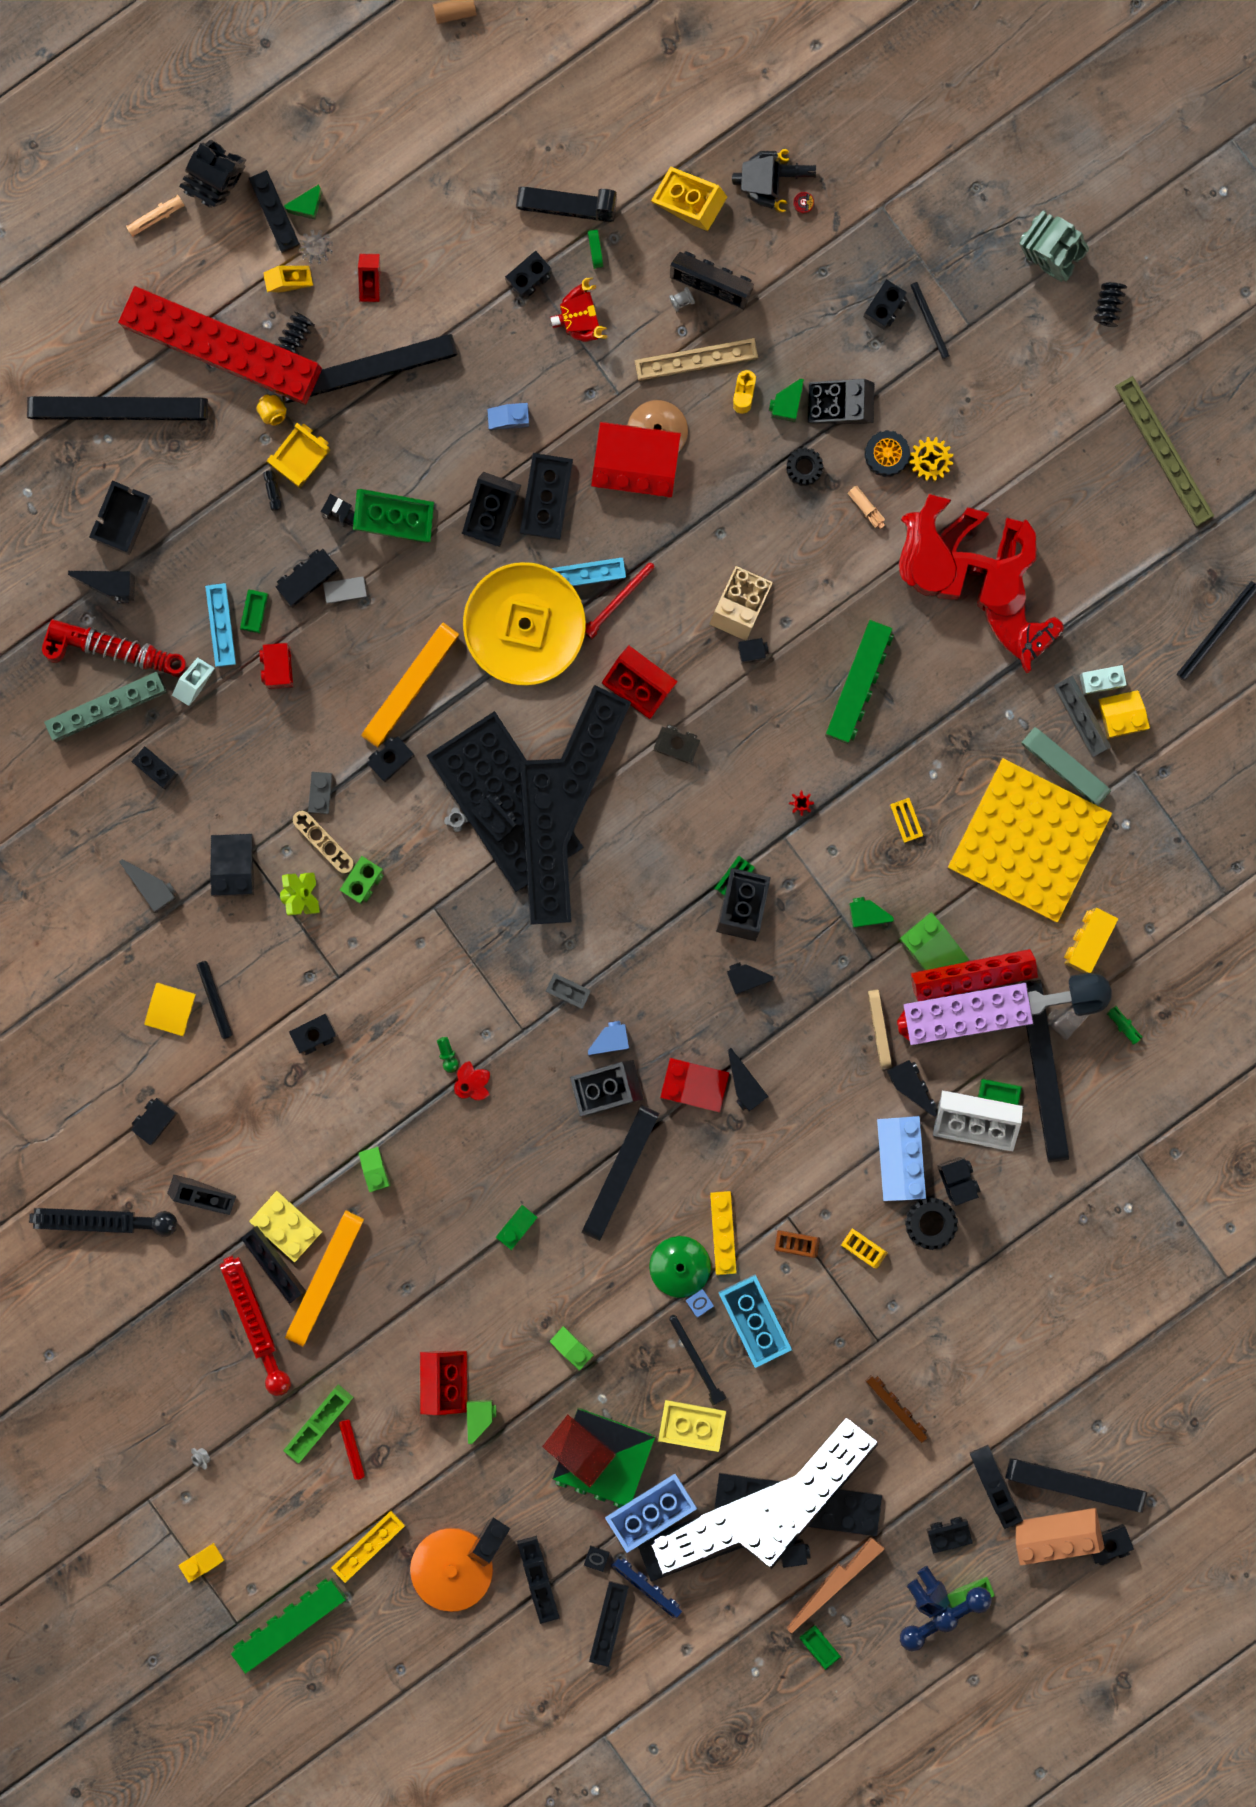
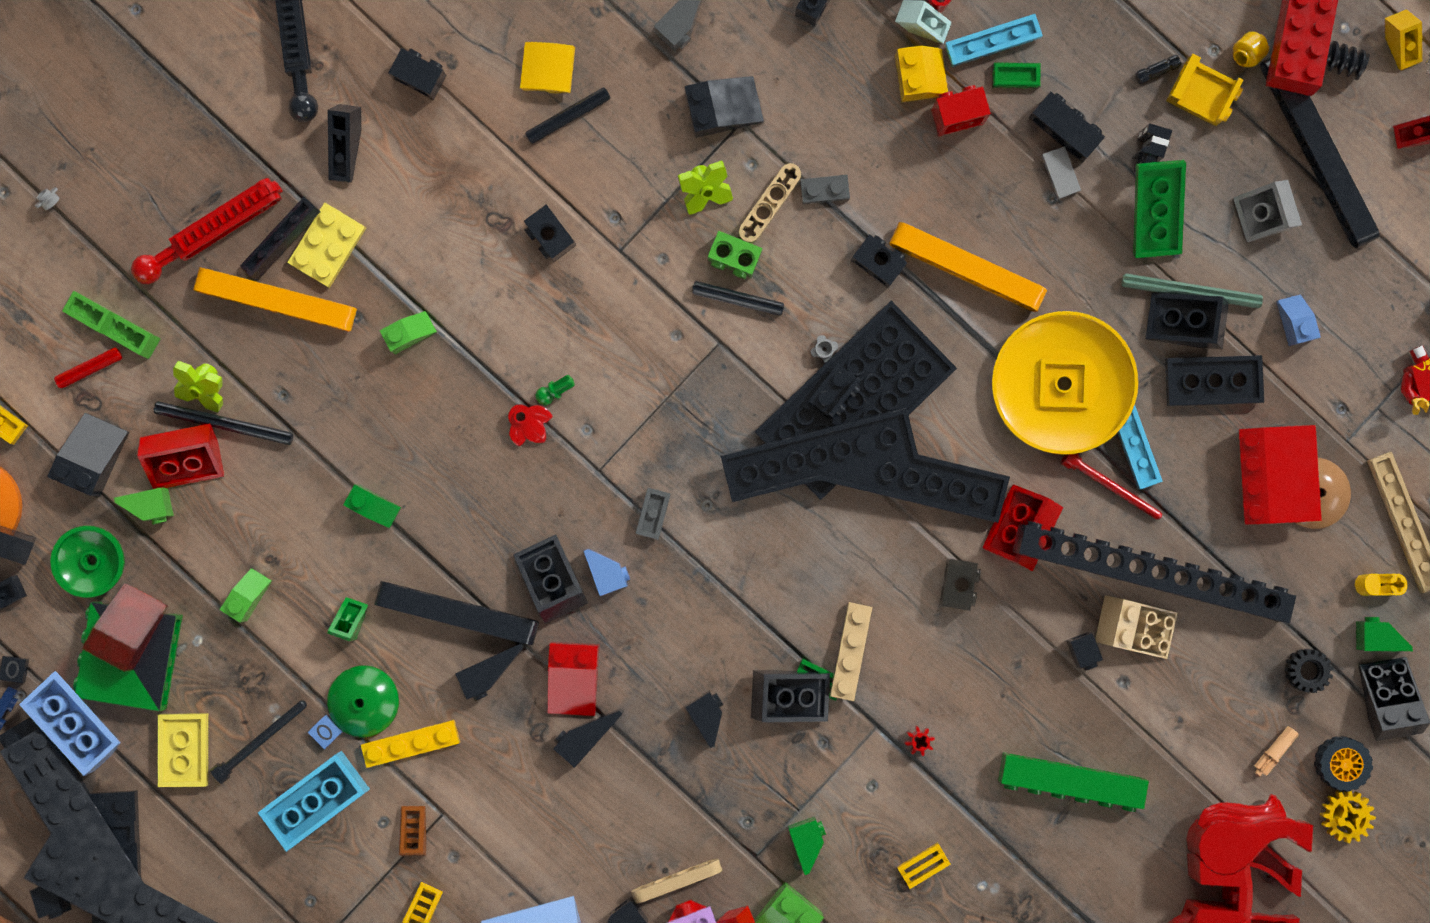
camera: 80 degrees right, 0 degrees up
(237, 691) = (920, 72): none -> yellow slope
(384, 1355) = (198, 384): none -> lime plant
(399, 884) = (738, 298): none -> black axle
(411, 423) = (1267, 210): none -> light grey slope
(421, 1342) = (223, 423): none -> black axle
(426, 1460) = (88, 455): none -> slope
(464, 504) = (1174, 287): none -> sand green axle
(519, 1491) = (72, 566): none -> green dish
(608, 1264) = (348, 620): none -> green slope
(676, 1158) = (483, 675): none -> black slope
(716, 846) = (851, 651): none -> tan plate
(748, 482) = (1278, 609): none -> black brick

